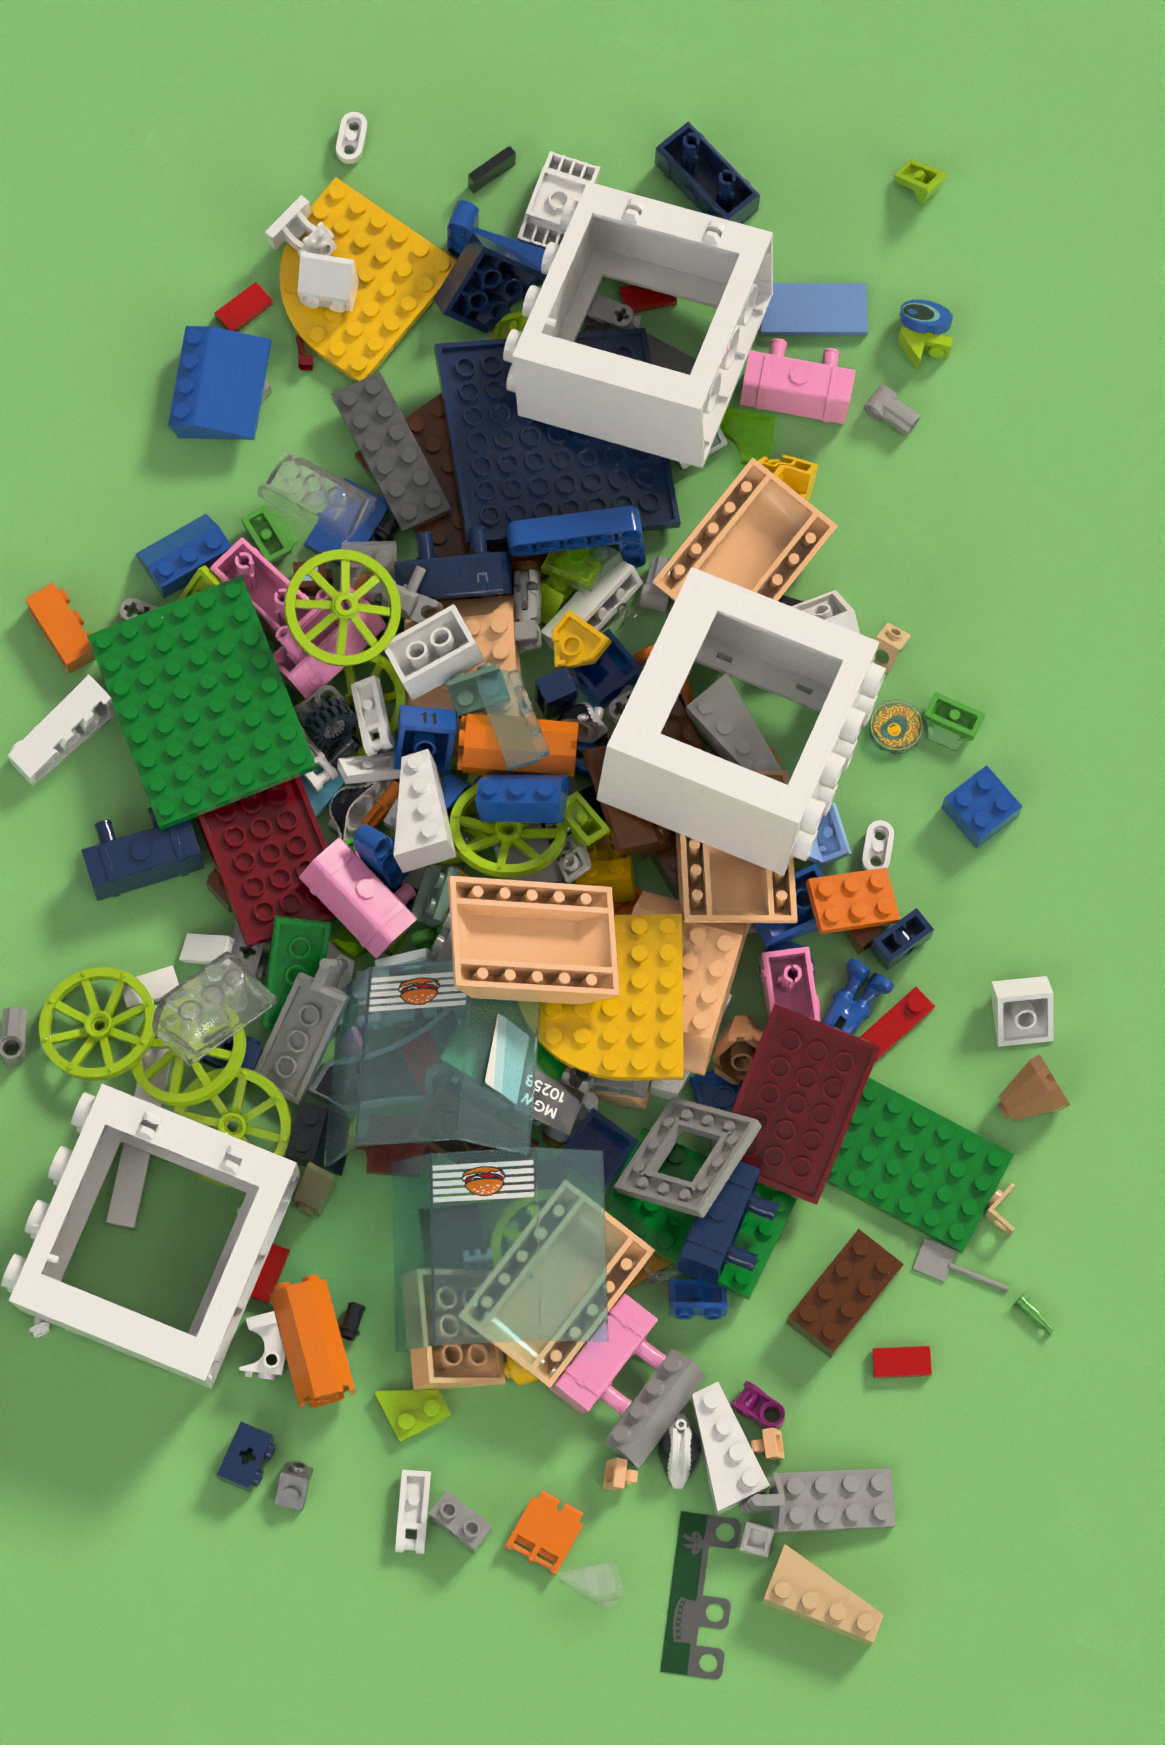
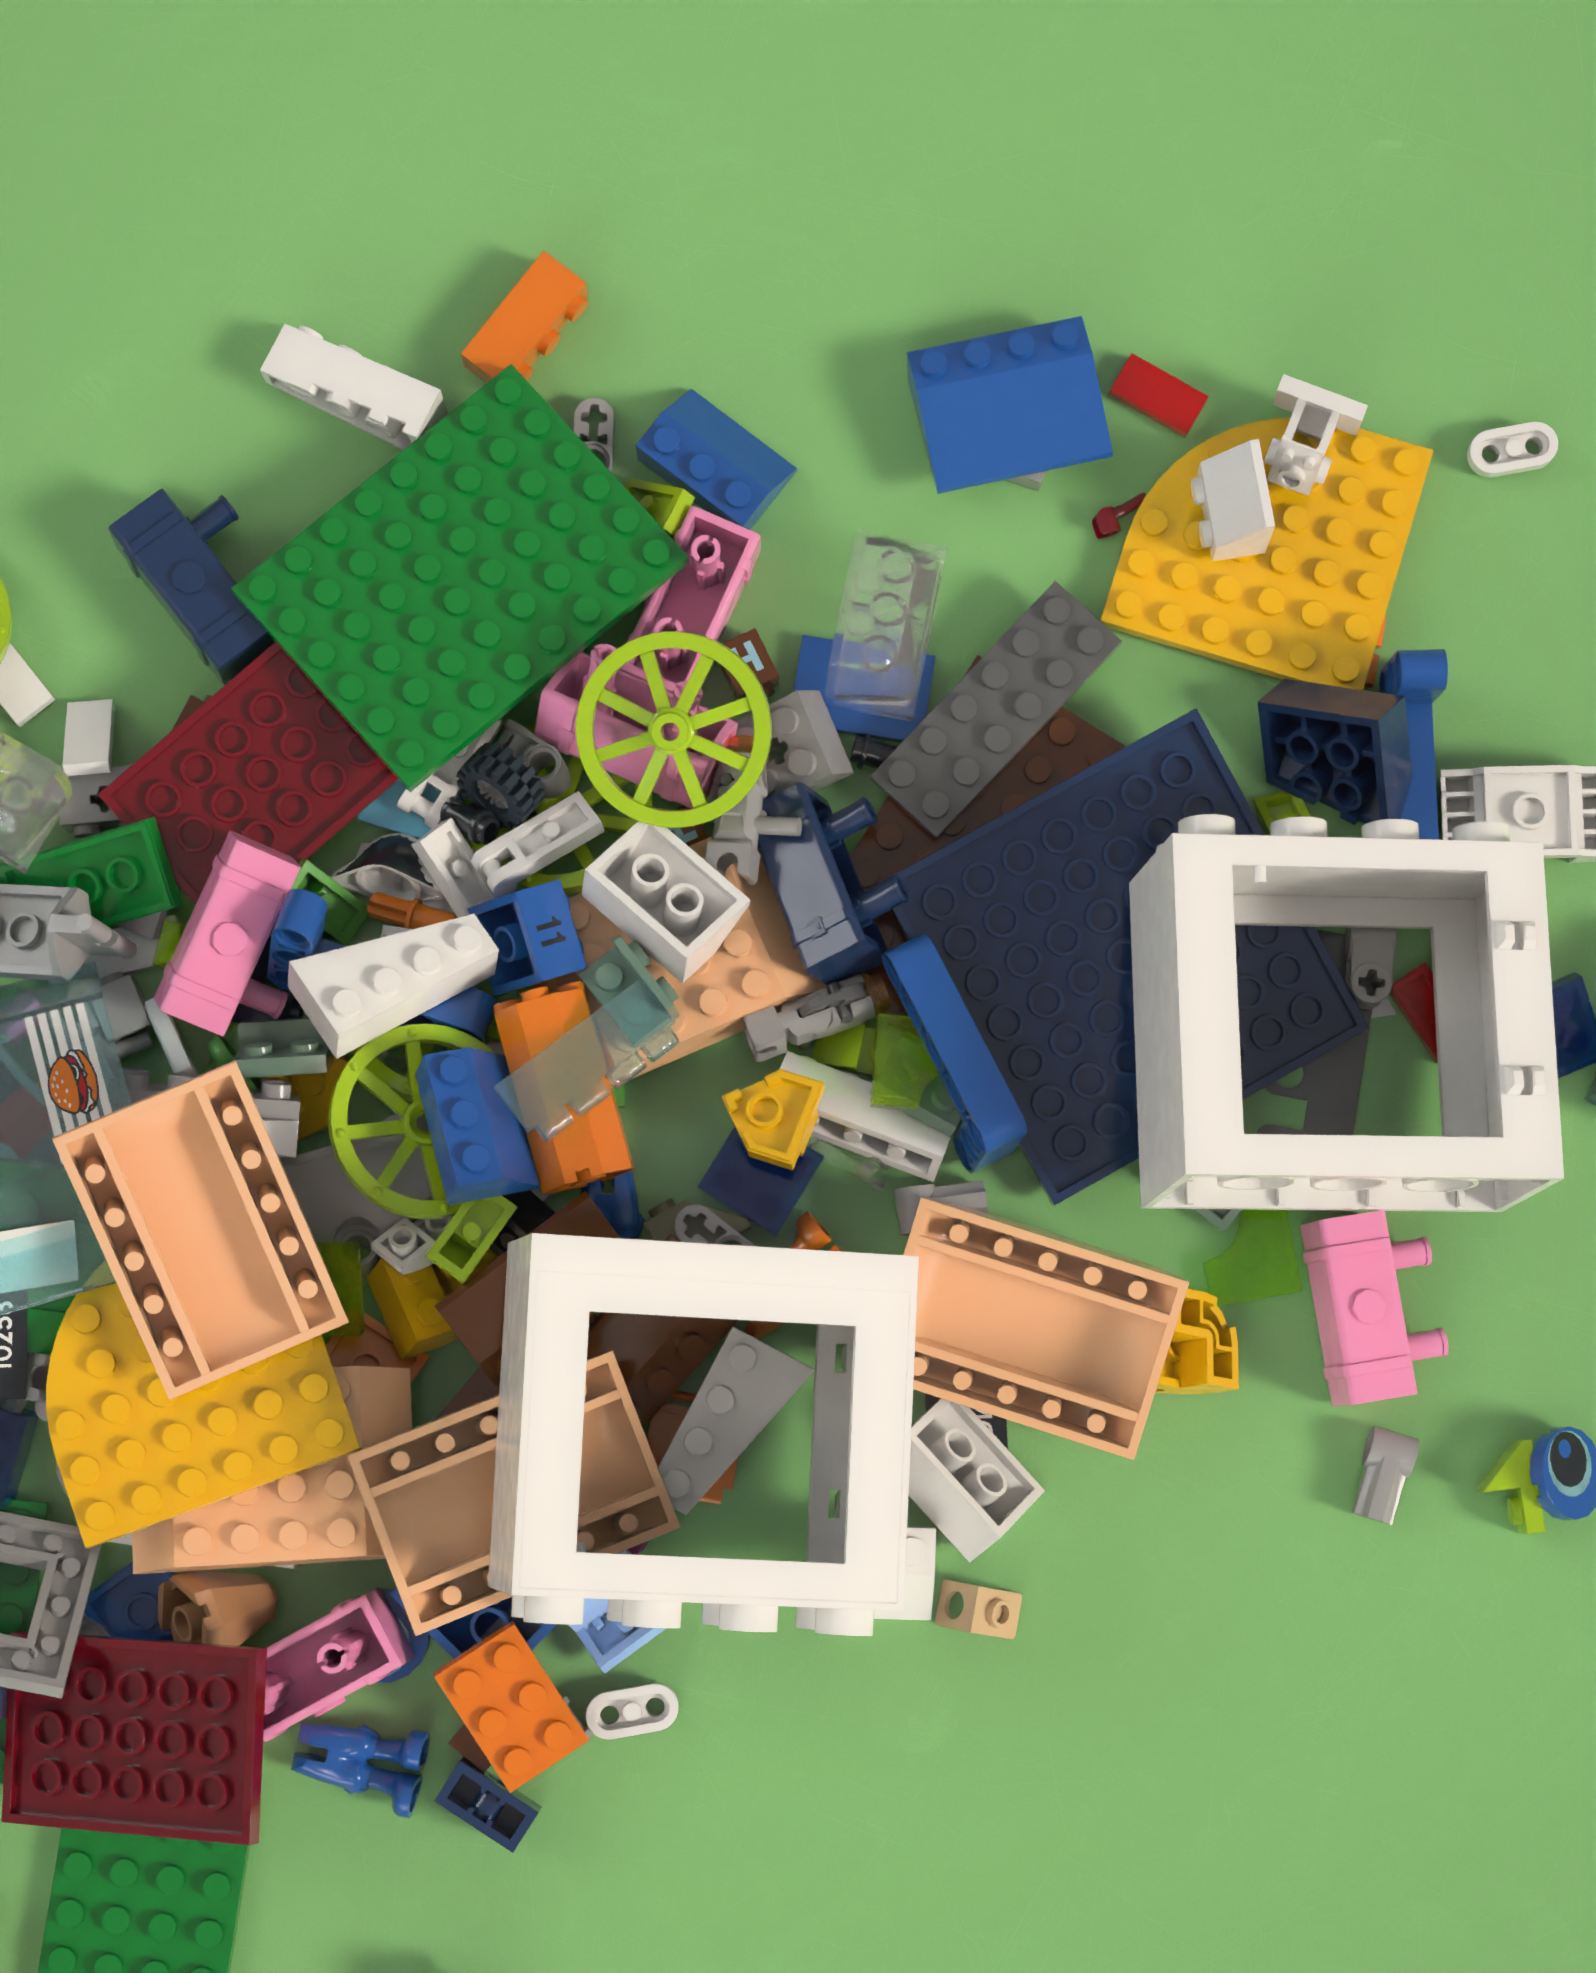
camera: 70 degrees right, 10 degrees up
(269, 534) = (796, 578): bright green slope -> none
(491, 169) = (1546, 686): black tile -> none
(556, 692) = (692, 1114): dark blue brick -> none
(589, 720) = (661, 1165): white hat -> none
(816, 310) = (1514, 1291): medium blue tile -> none
(896, 726) = (848, 1672): tile -> none
(899, 1021) = (338, 1830): red plate -> none
(951, 721) = (887, 1756): bright green slope -> none
(981, 806) = (759, 1855): blue brick -> none

